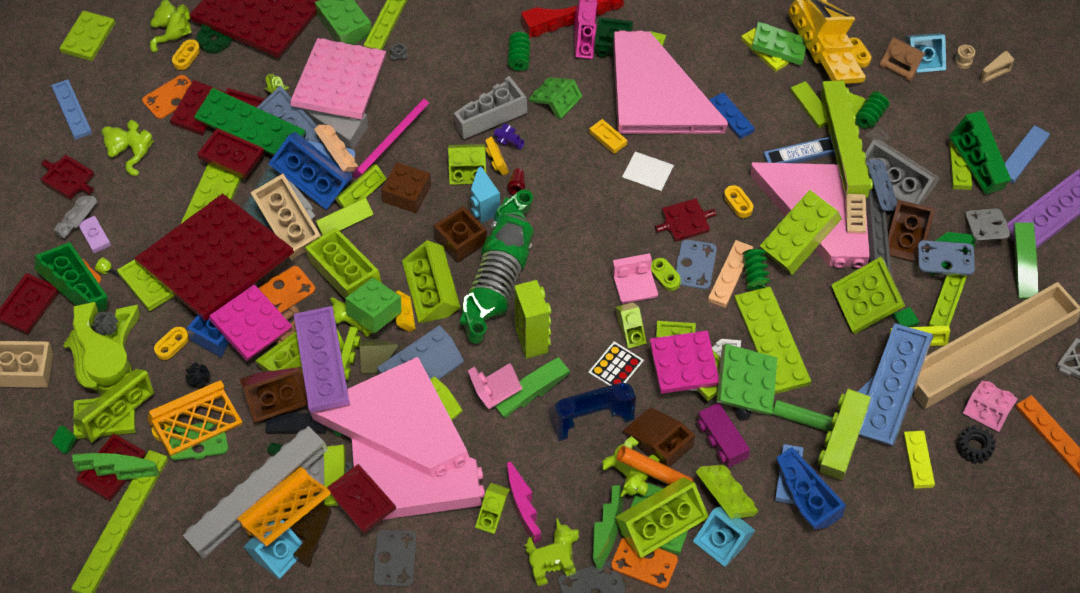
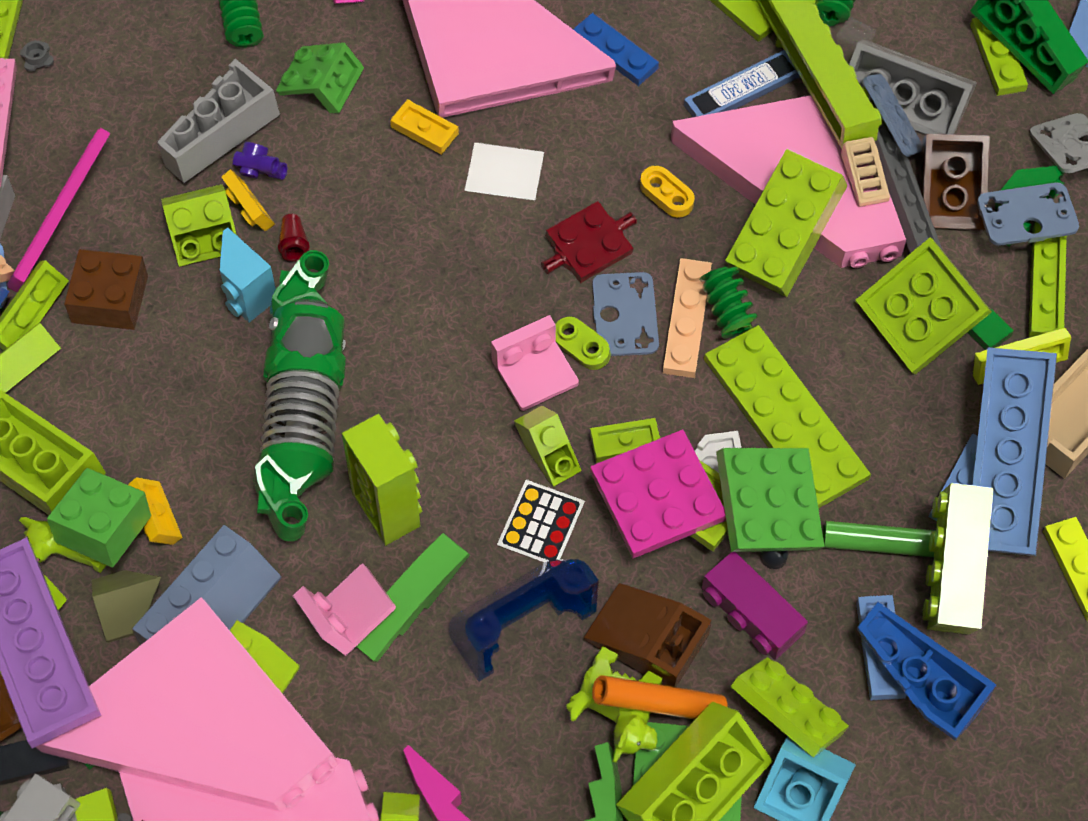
camera: 15 degrees left, 5 degrees up
(348, 354) = (76, 615): lime plate -> none
(430, 282) = (189, 449): lime slope -> none
(460, 233) = (219, 351): reddish brown brick -> none

